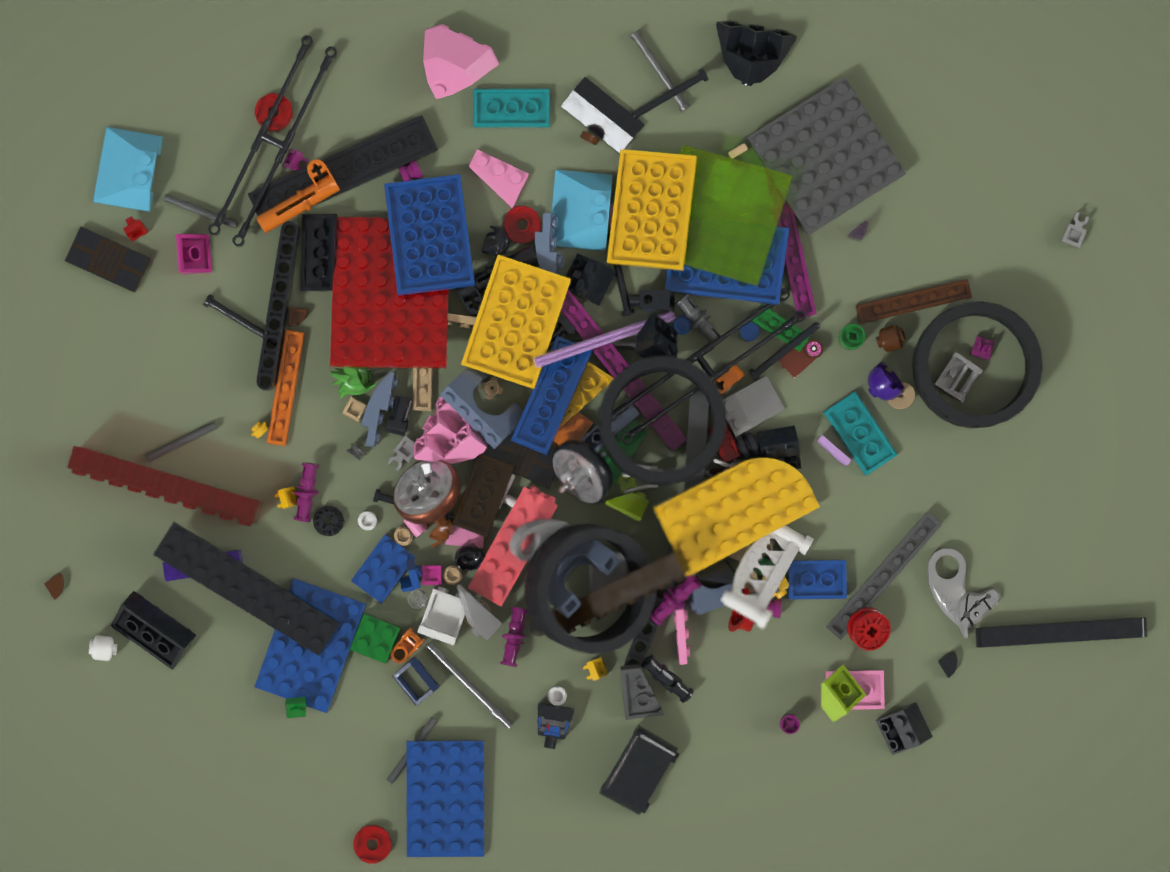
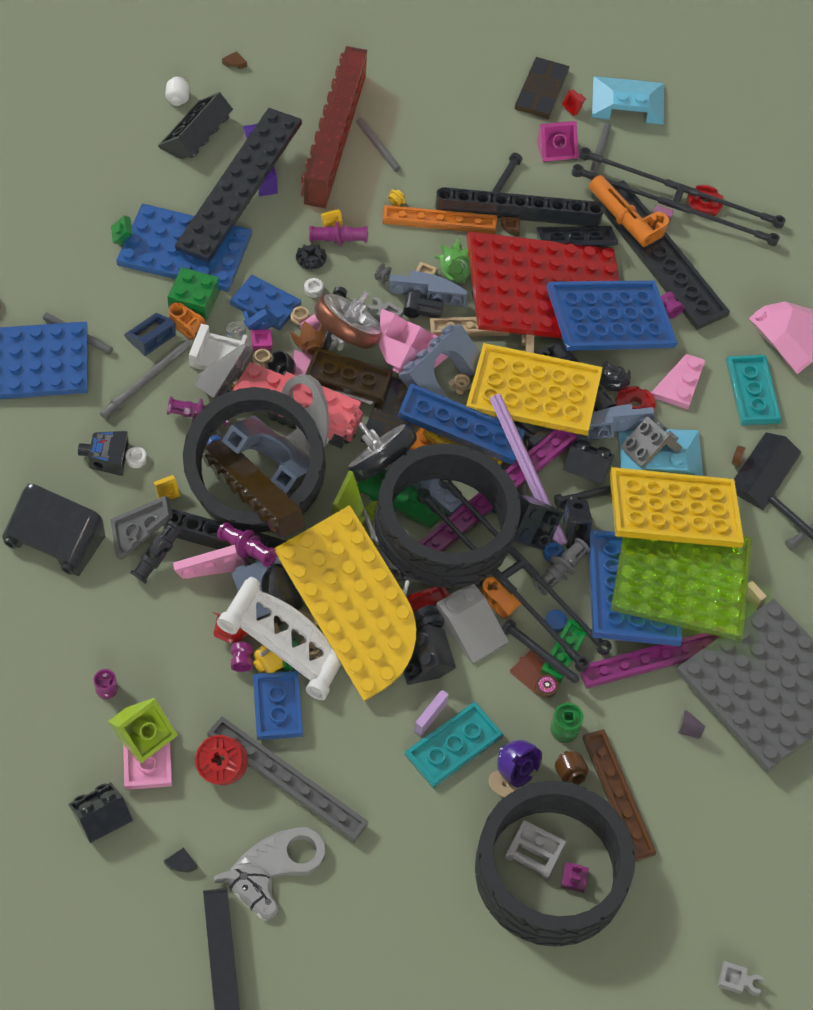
camera: 75 degrees right, 30 degrees down
(578, 220) = (648, 441): none -> dark grey bracket

